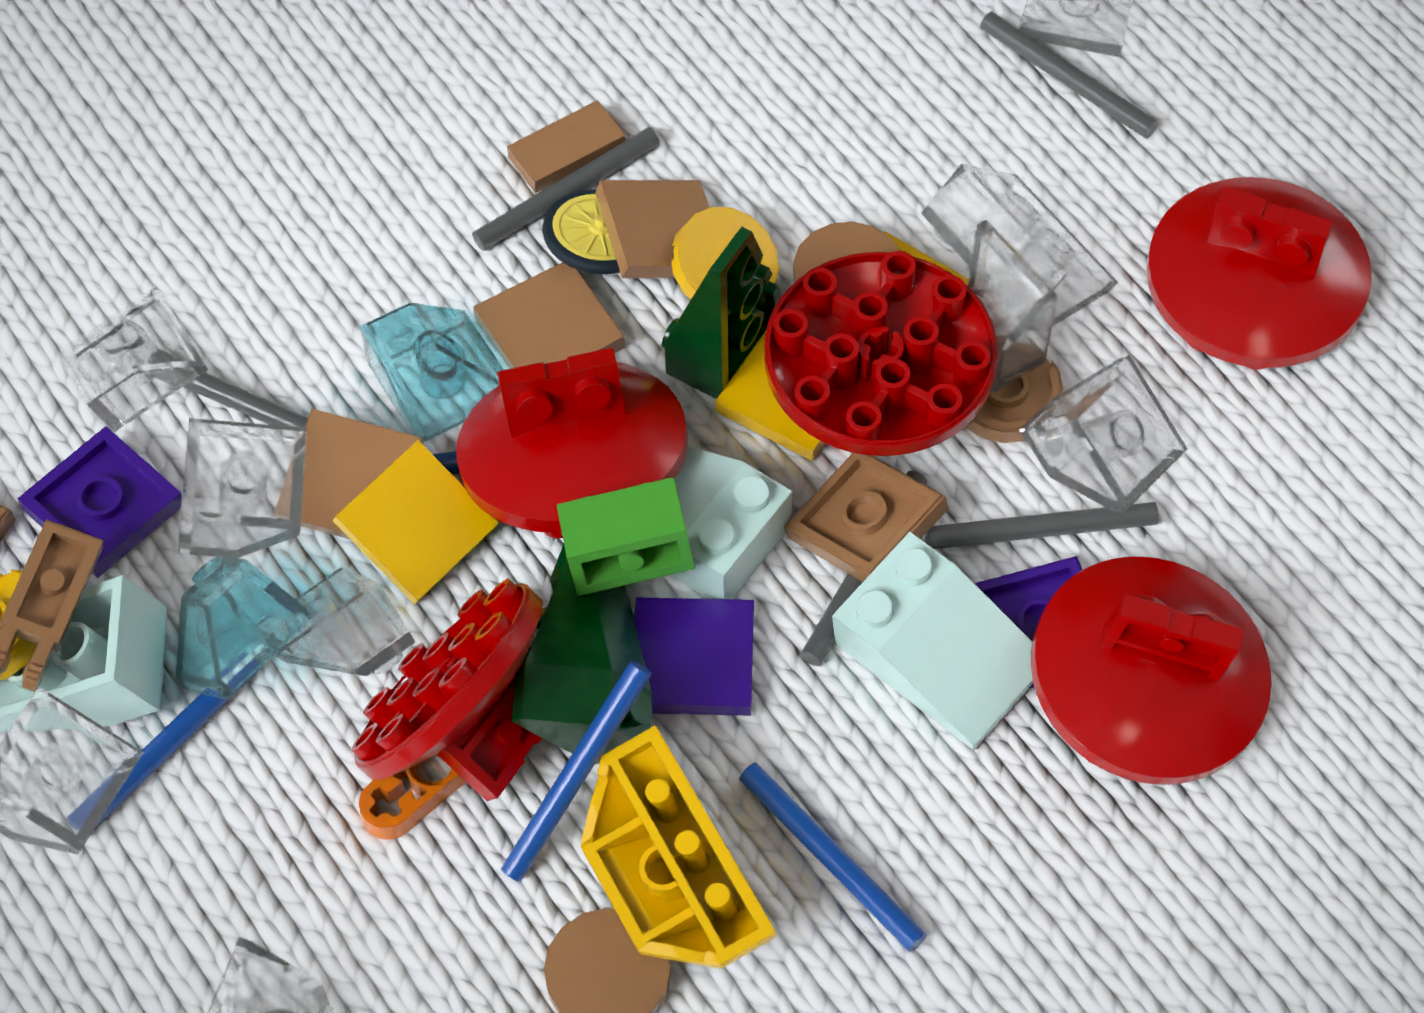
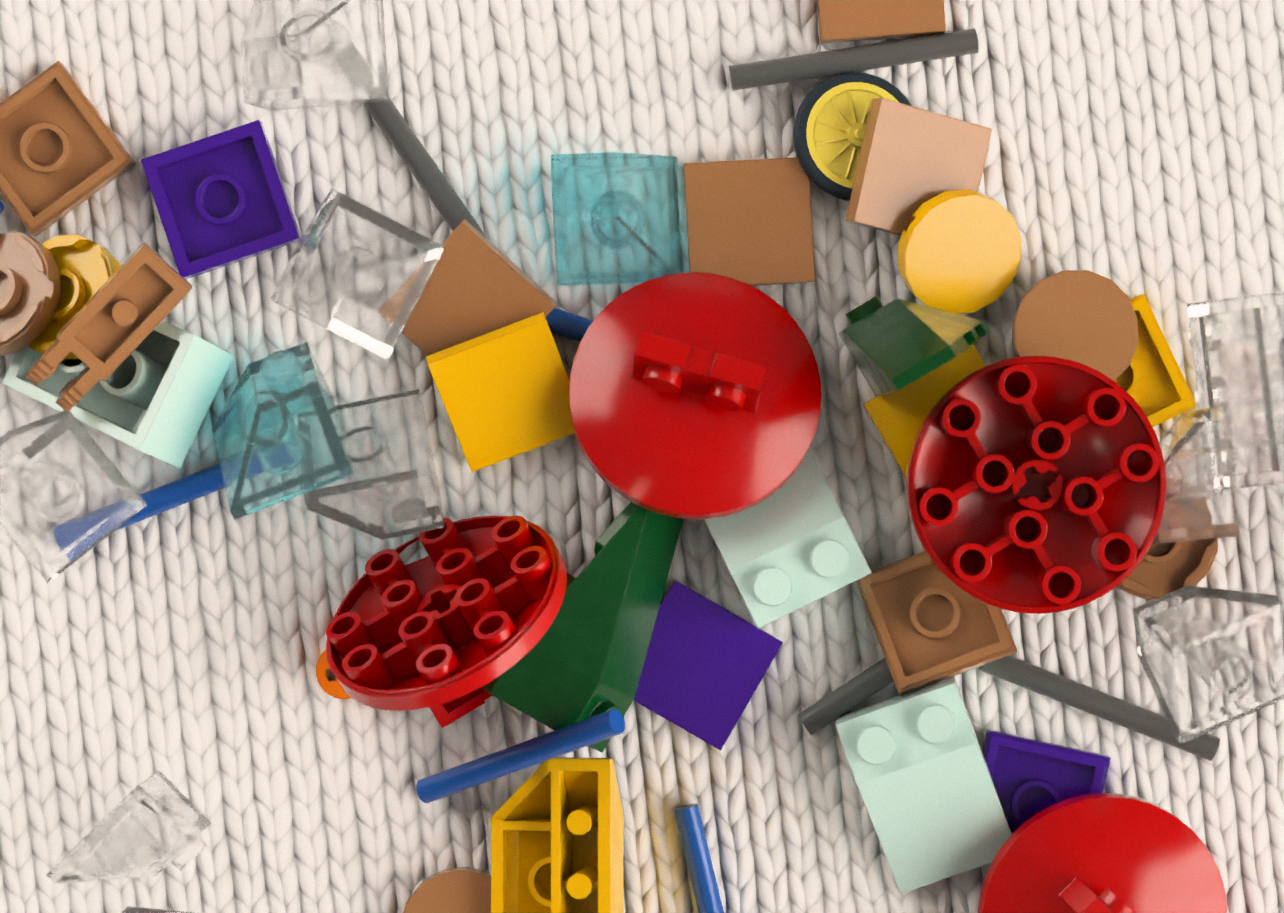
camera: 20 degrees right, 30 degrees up
(625, 536) = (682, 552): bright green brick -> none

